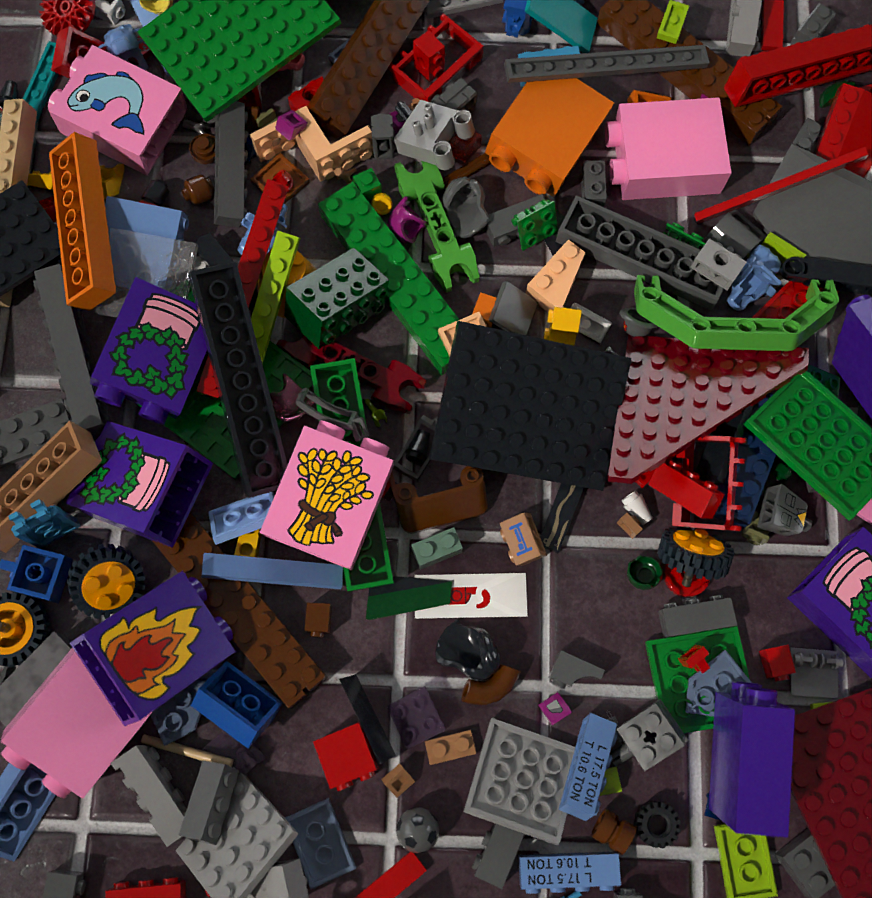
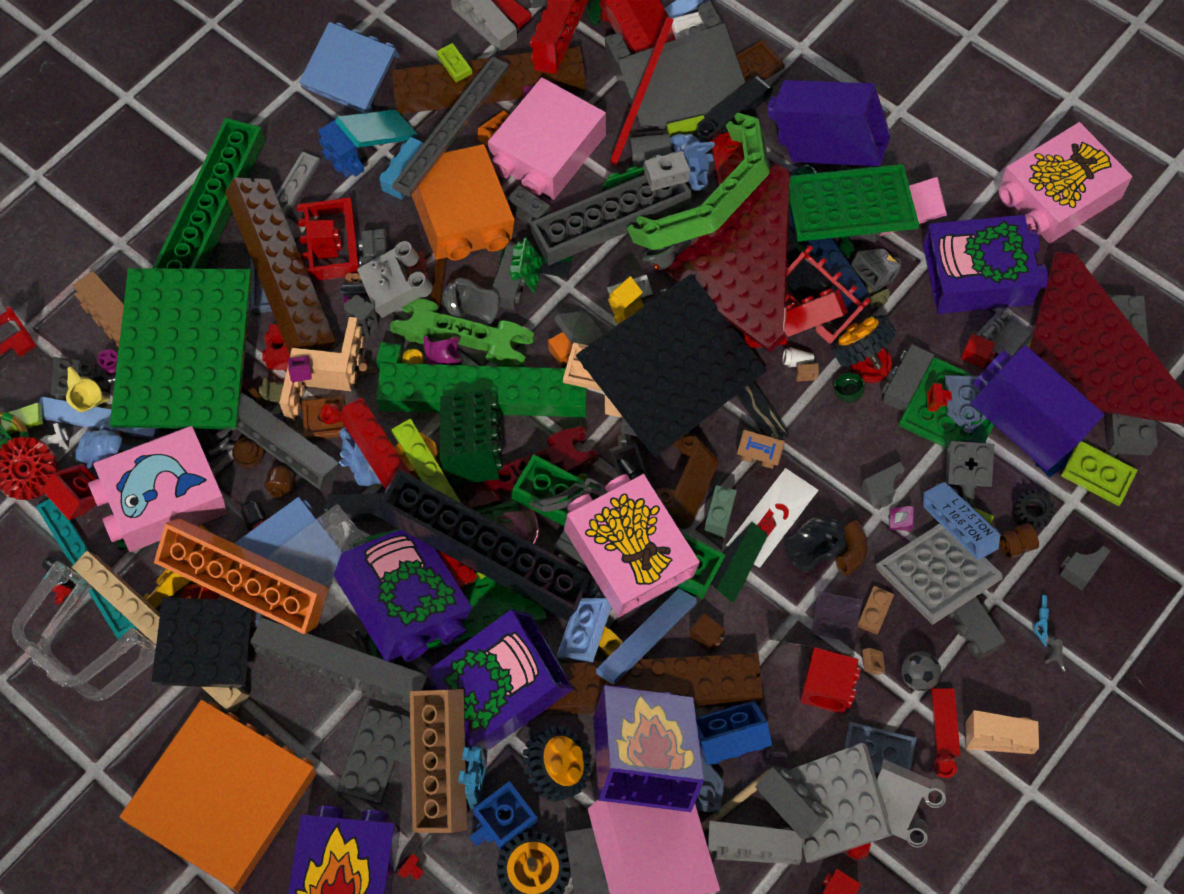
camera: 50 degrees left, 10 degrees down
(557, 277) = (582, 284): light nougat wedge -> none
(569, 871) = (1023, 591): medium blue brick -> none

